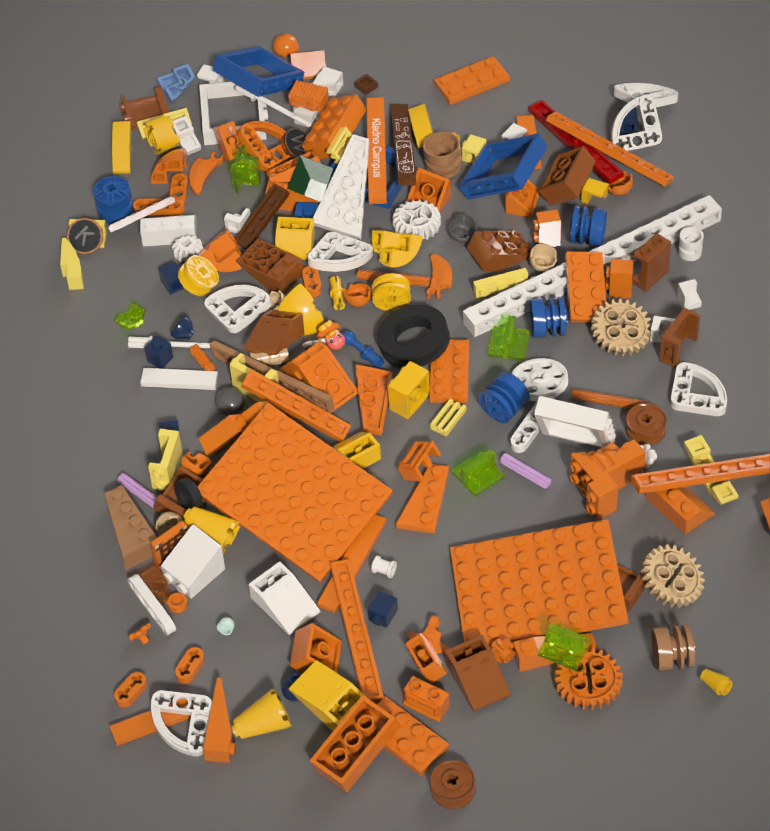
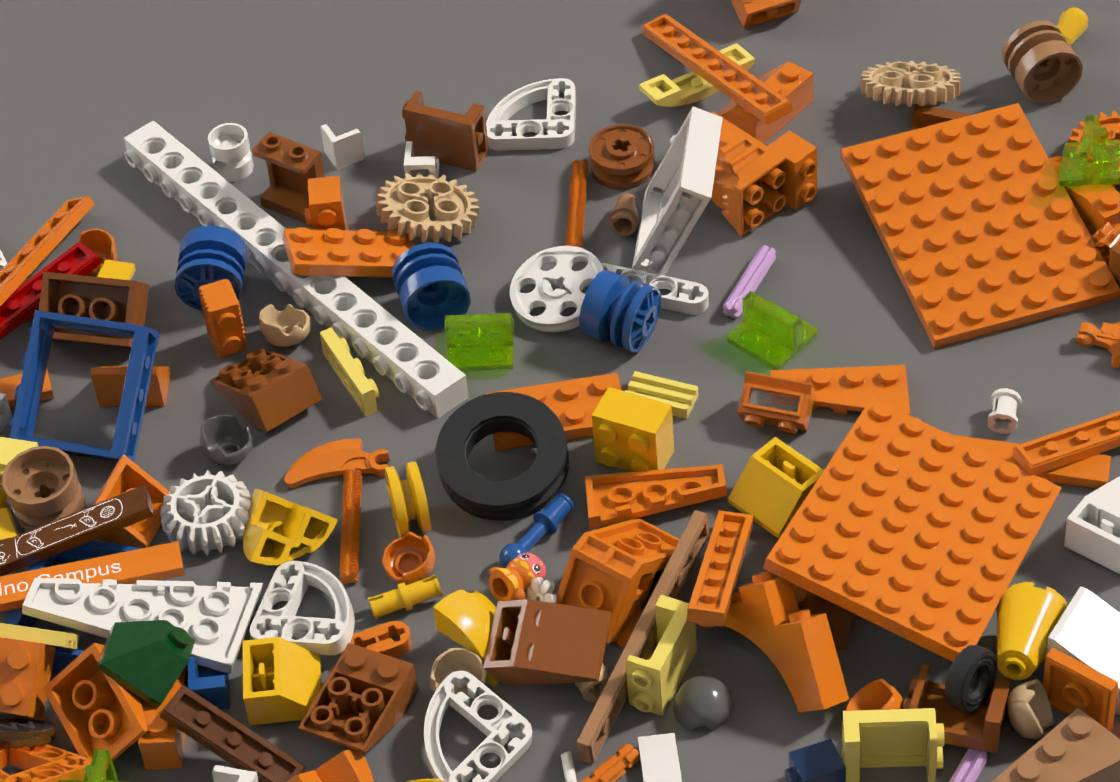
camera: 100 degrees left, 5 degrees down
(382, 609) = (1090, 394): dark blue brick -> none

